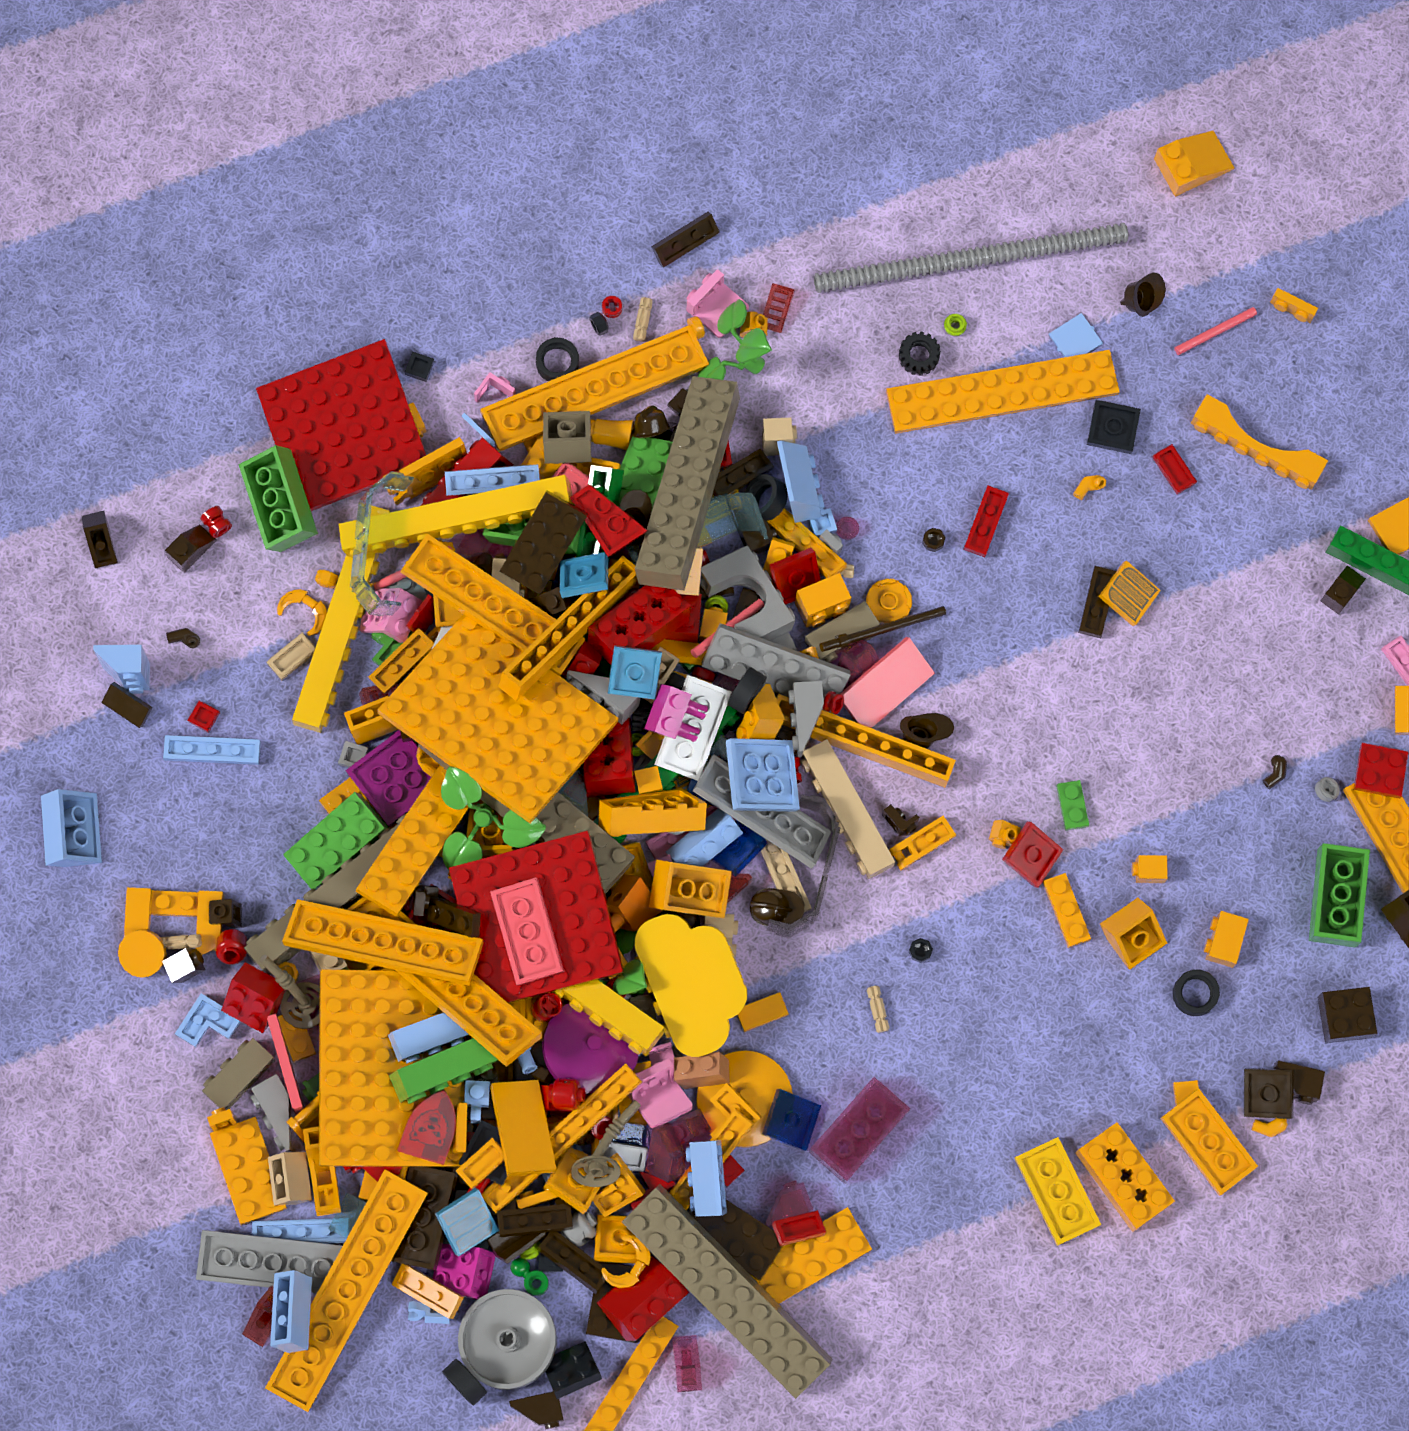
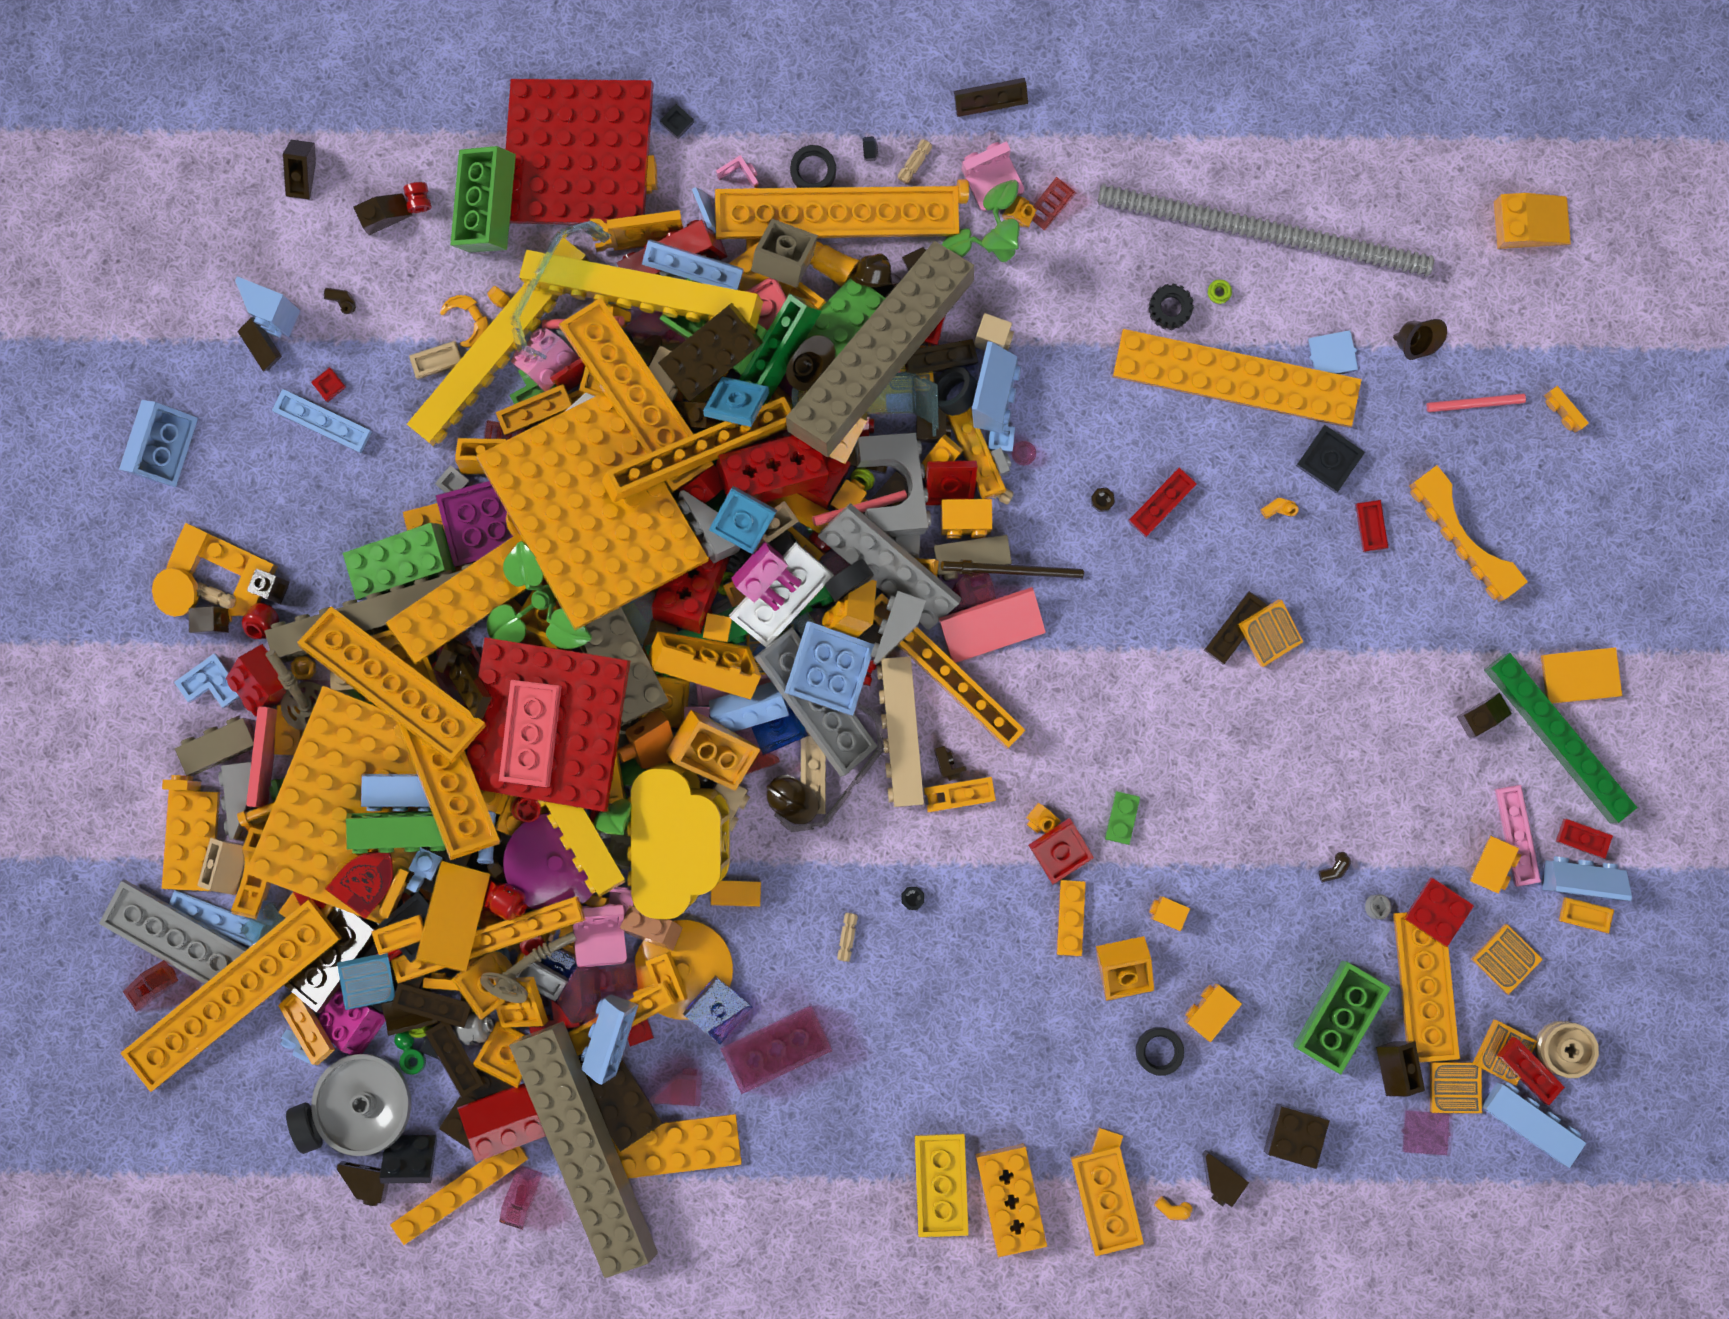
camera: 30 degrees right, 10 degrees up
(291, 1311) = (167, 996): light blue brick -> none
(606, 520) = (780, 356): red wing -> none
(607, 312) = (883, 140): red bush -> none
(630, 1279) = (496, 1099): light orange piece -> none
(799, 1228) = (678, 1118): red tile -> none
(833, 702) = (930, 624): red bush -> none
(888, 607) = (1035, 549): light orange tile -> none
(926, 728) = (1011, 685): dark brown piece -> none
(1268, 1093) = (1185, 1179): dark brown tile -> none

